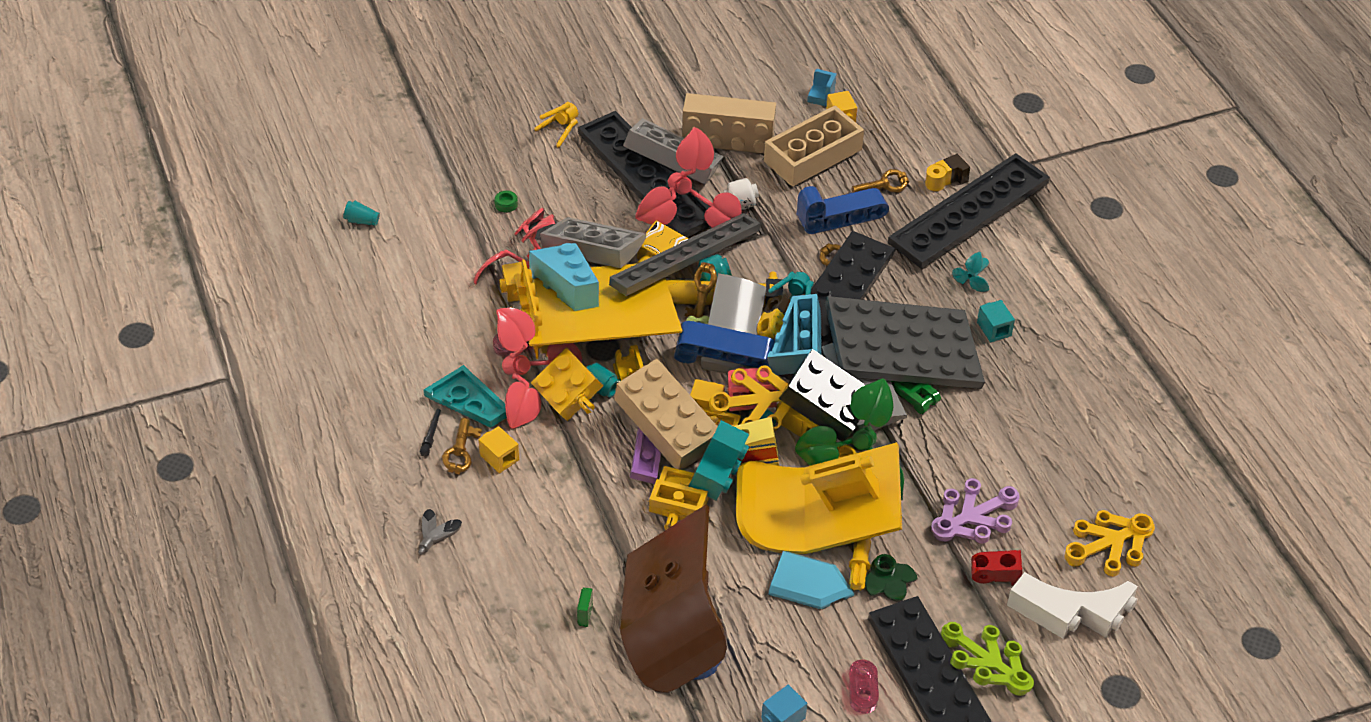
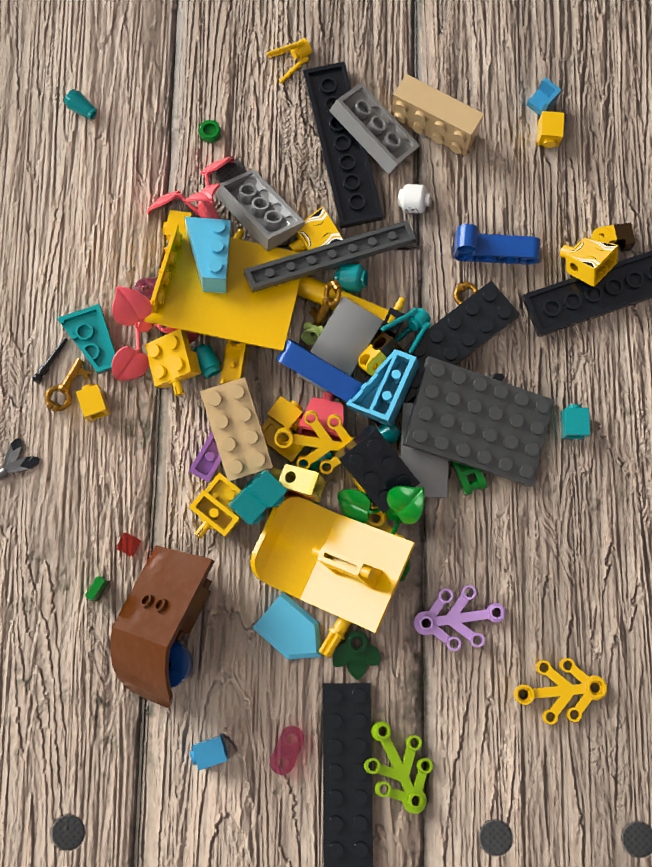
camera: 25 degrees right, 30 degrees up
(597, 563) = (128, 544): none -> clear red piece
(692, 153) = (369, 160): coral plant -> none
(813, 145) = (503, 166): tan brick -> none
(884, 182) = (550, 227): pearl gold piece -> none
(935, 190) = (590, 260): none -> yellow torso
(974, 265) = (581, 361): teal plant -> none
(997, 566) = (449, 683): red leg -> none
(1065, 609) = (484, 749): white arch -> none

